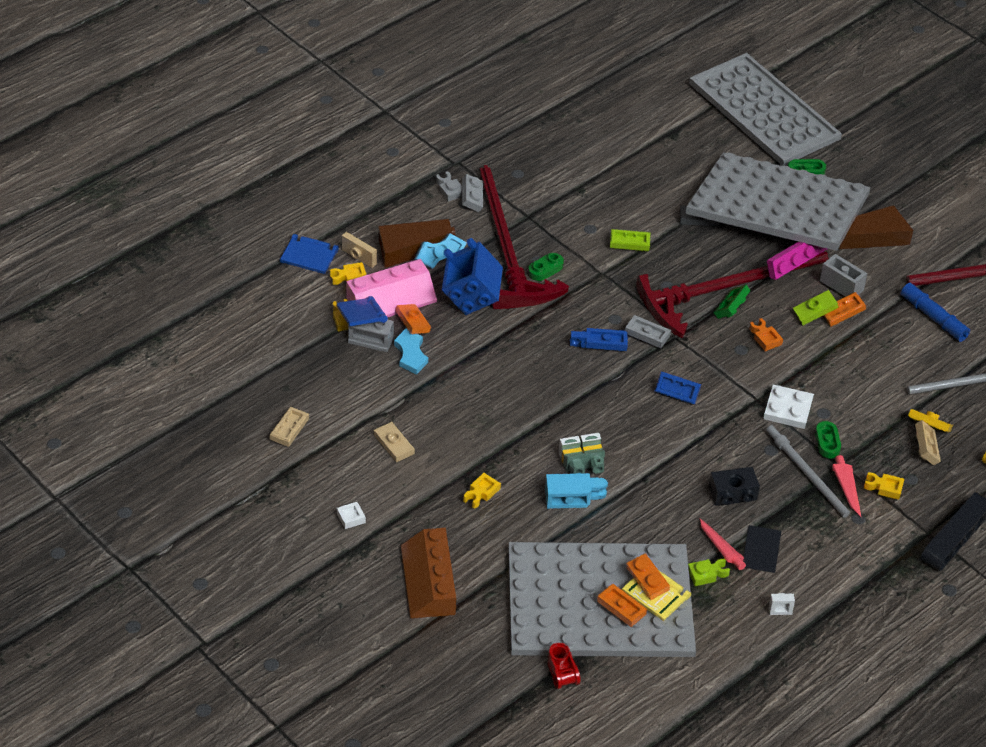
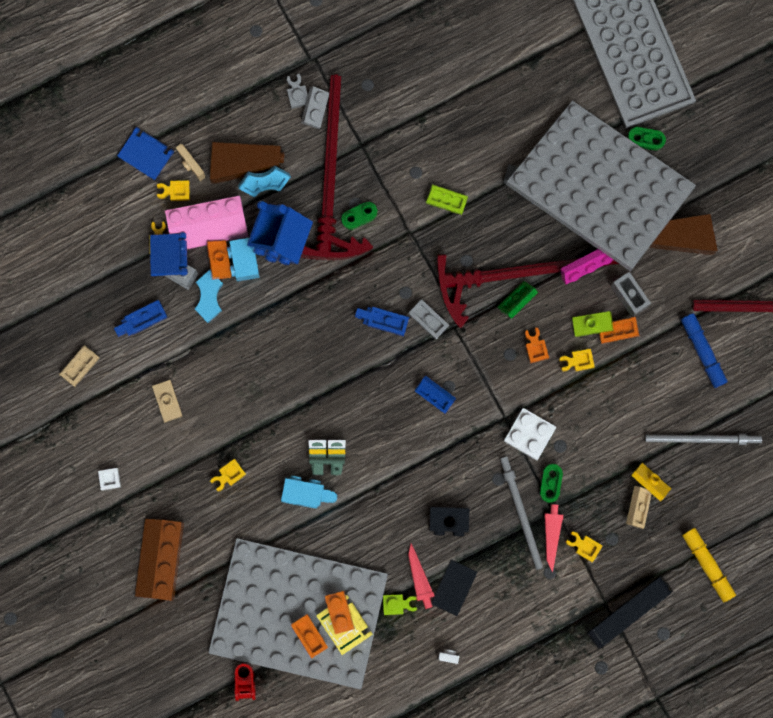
camera: 15 degrees right, 35 degrees up
(345, 378) = (141, 319): none -> blue hinge
(440, 313) = (244, 260): none -> medium azure brick
(814, 338) = (580, 360): none -> yellow plate

